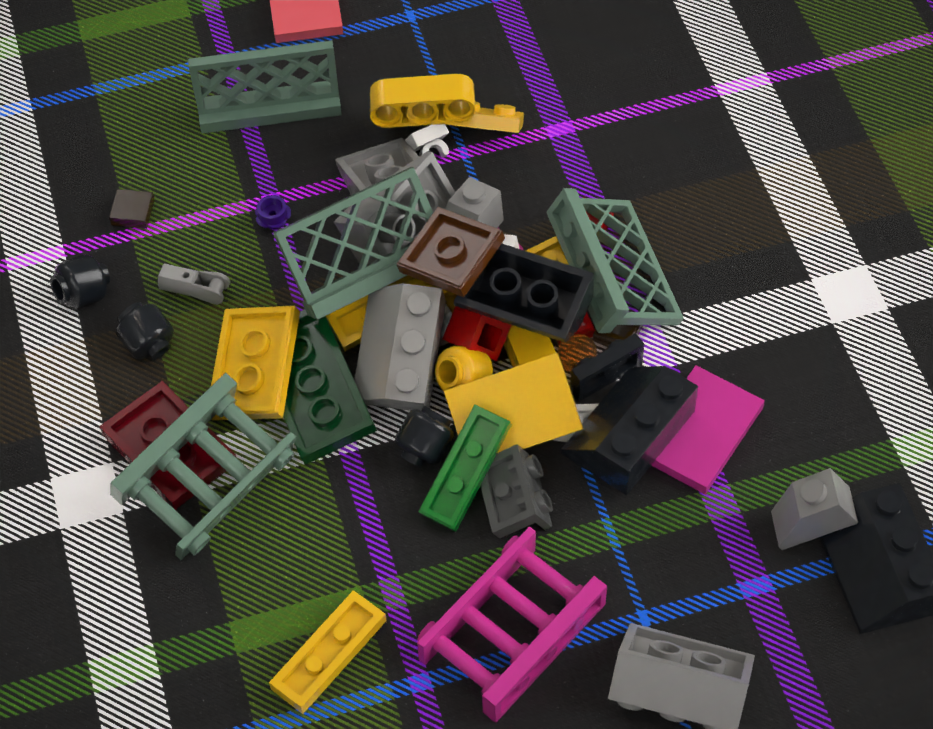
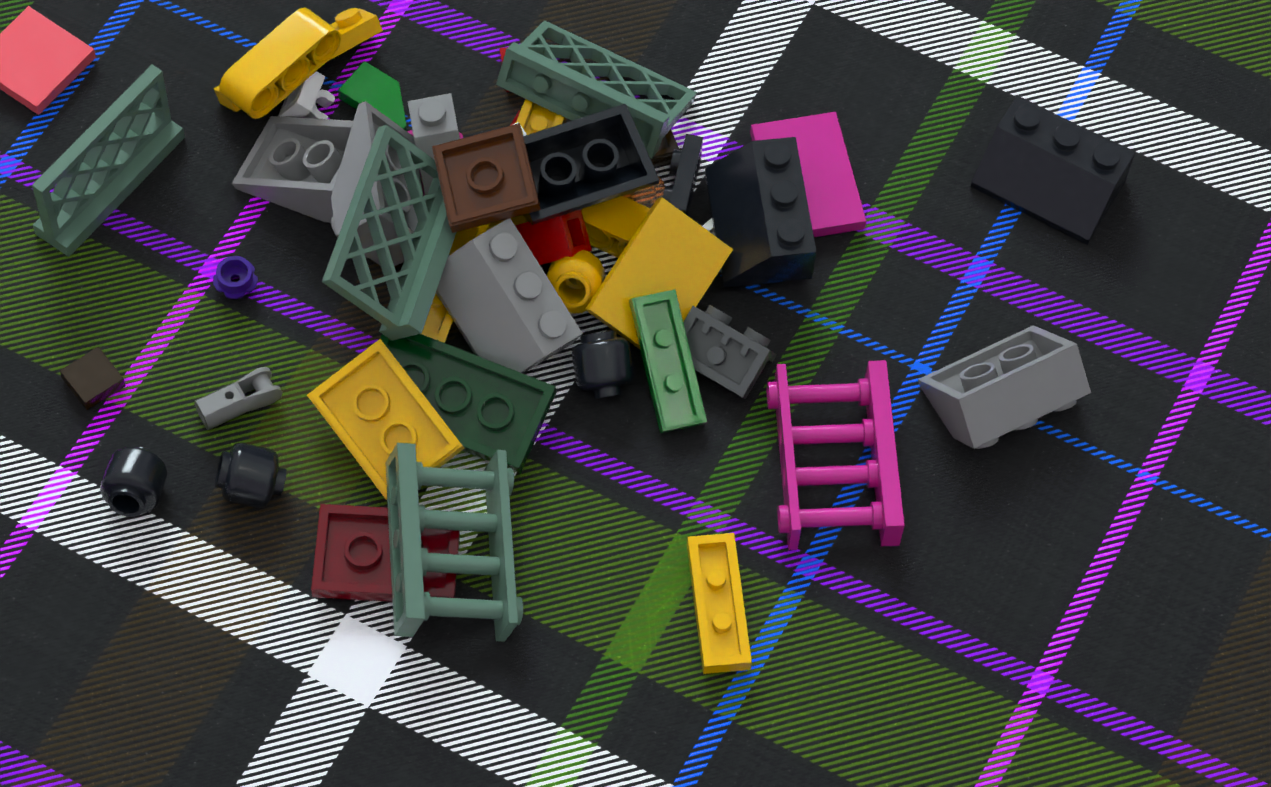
camera: 50 degrees left, 5 degrees up
(476, 163) = (377, 89): none -> green tile
(813, 509) = (970, 173): light grey slope -> none

